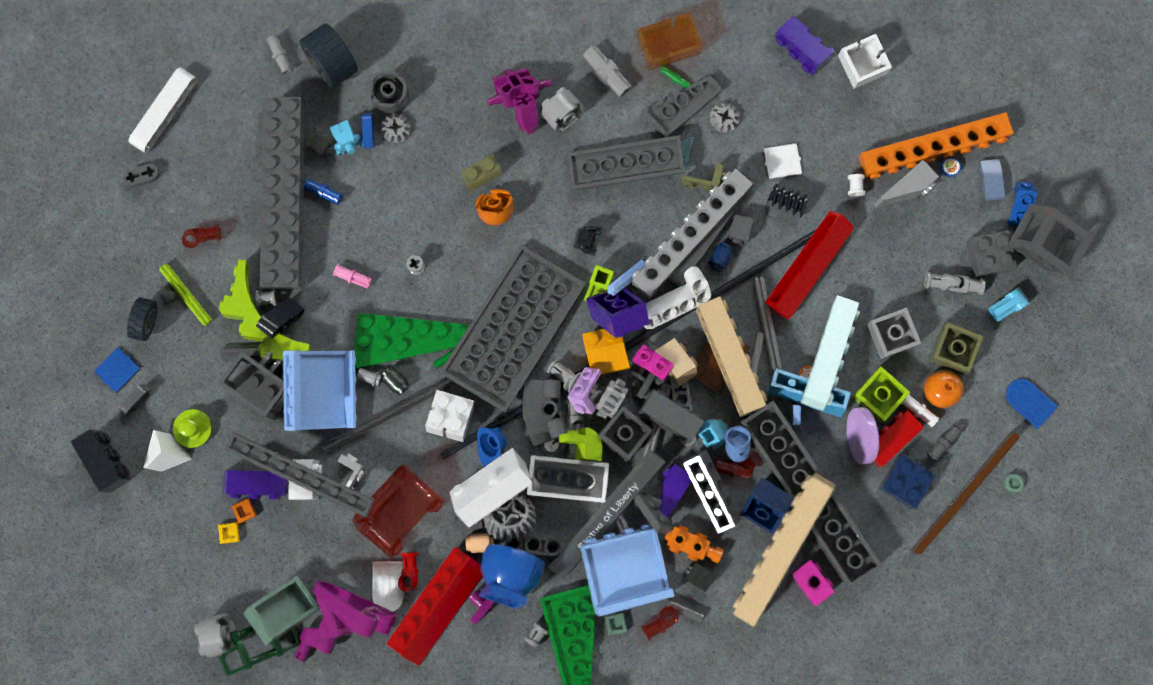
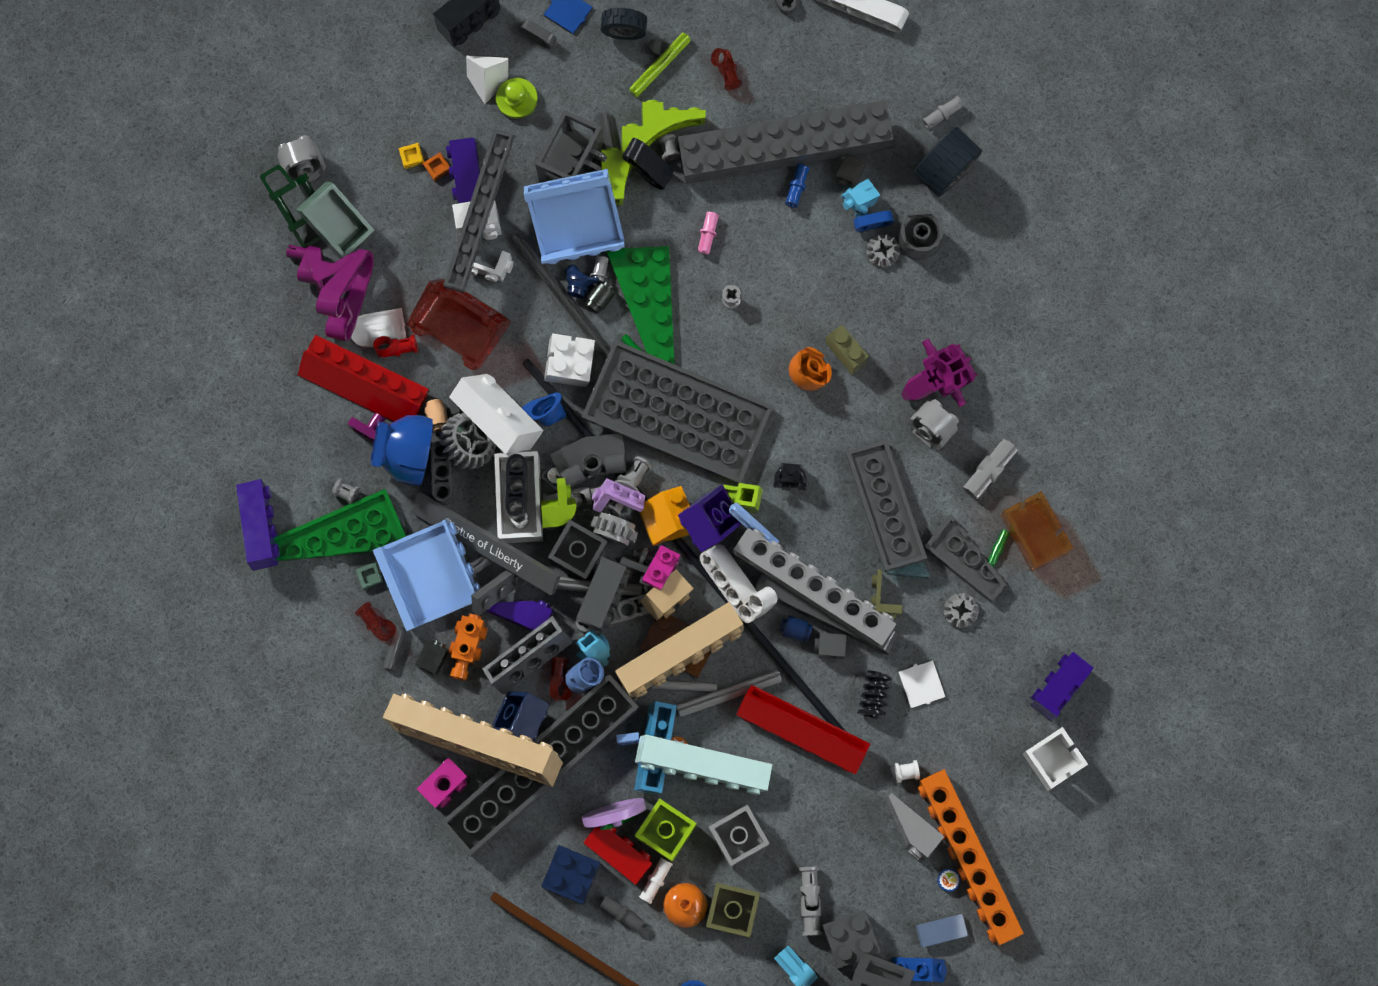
camera: 80 degrees right, 5 degrees down
(377, 397) = (578, 281): none -> dark blue animal

